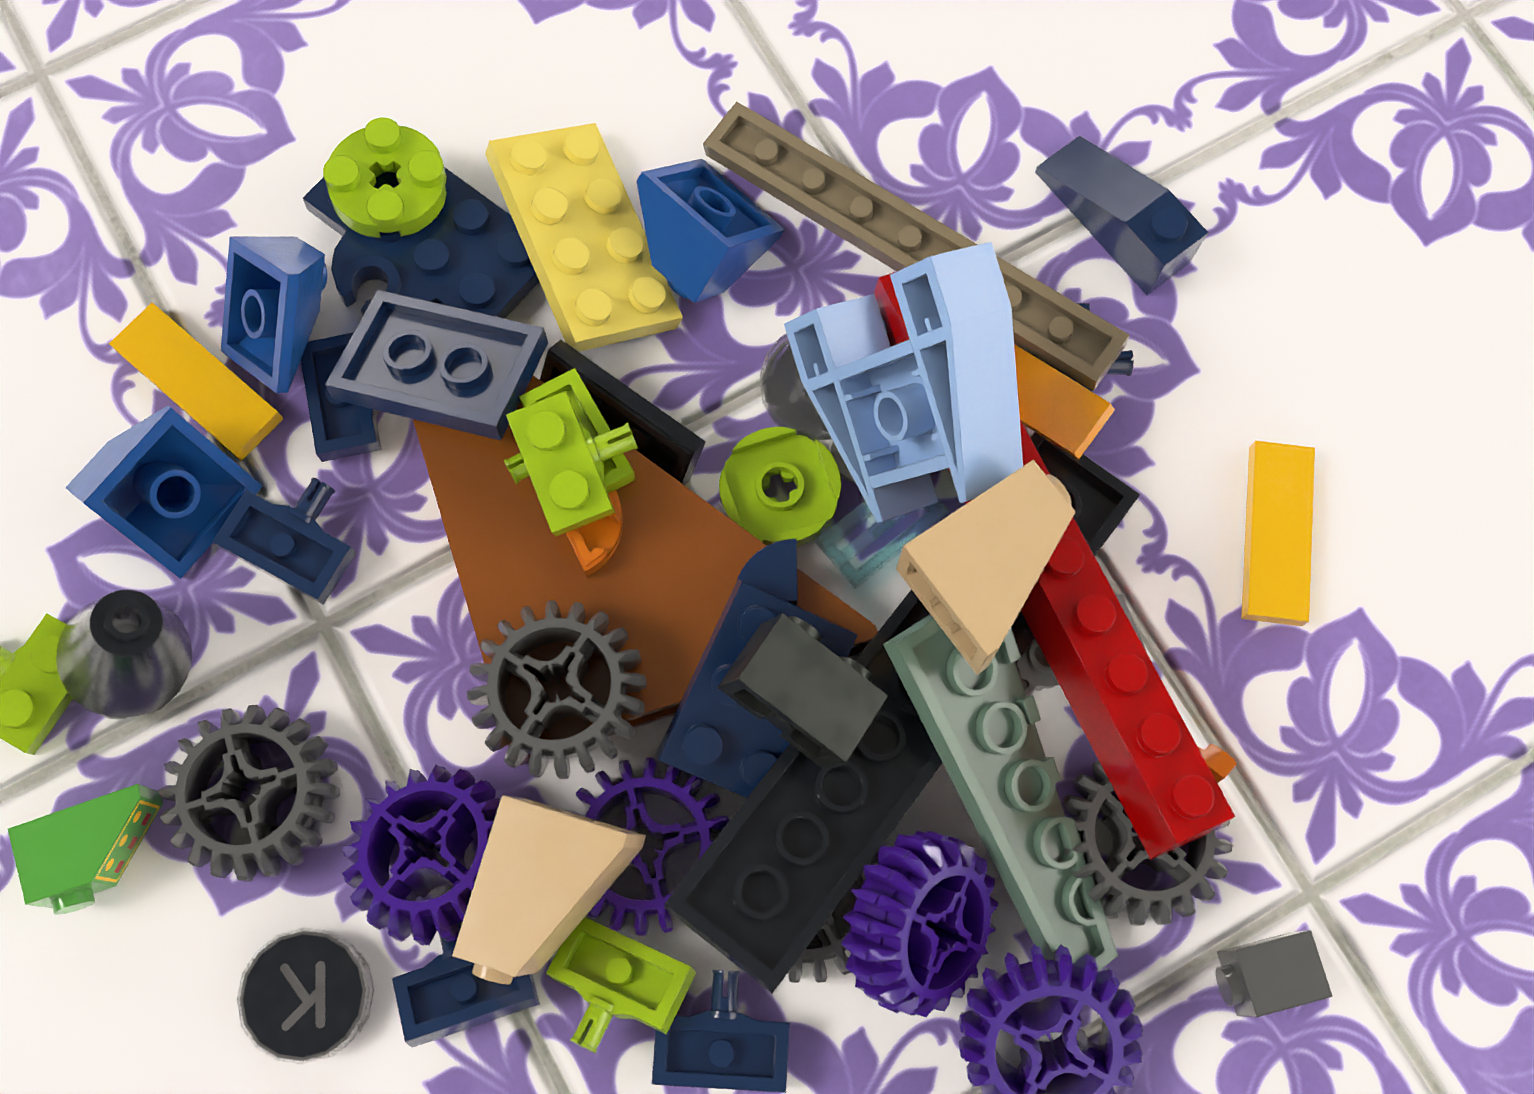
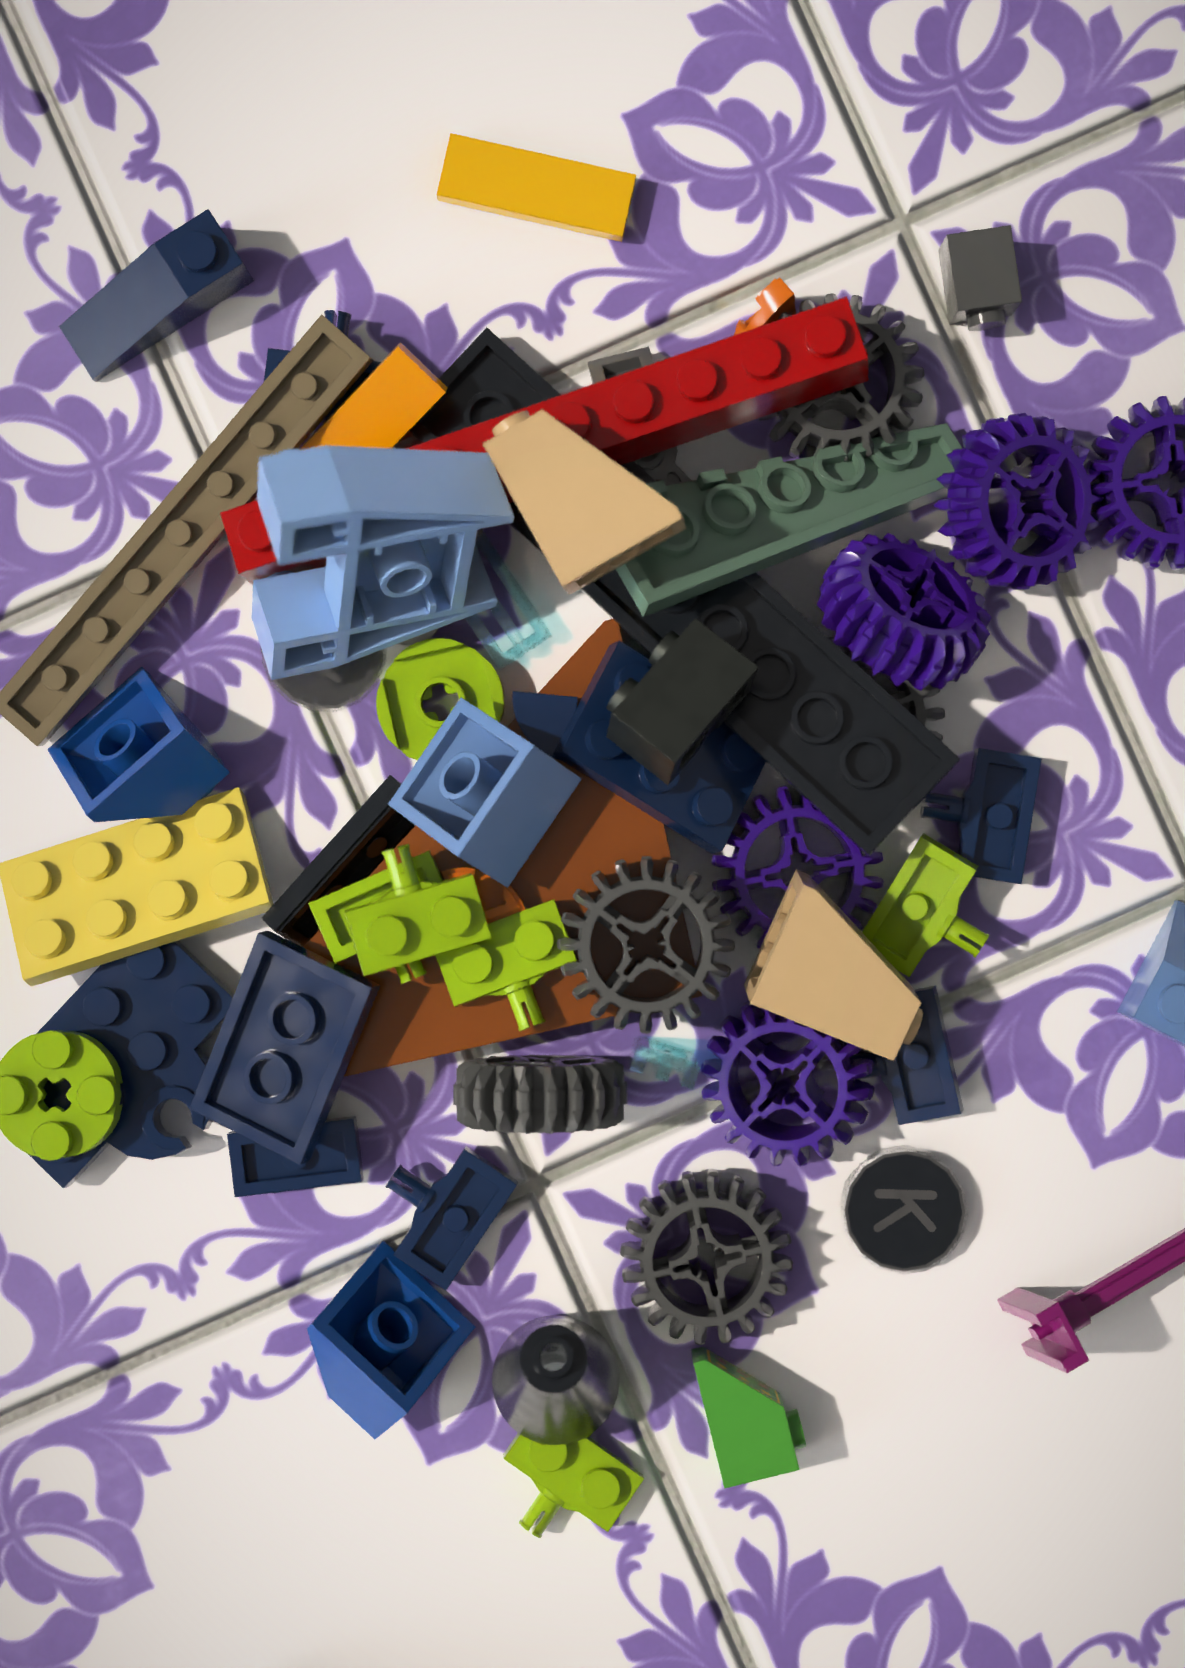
camera: 80 degrees left, 15 degrees up
(196, 381) = (260, 1308): yellow tile -> none
(271, 305) = (193, 1223): blue slope -> none
(404, 607) = (540, 1093): none -> dark grey gear
(447, 702) = (664, 1059): none -> clear light blue tile
(532, 560) = (509, 962): none -> lime plate
(692, 521) = (484, 792): none -> medium blue slope

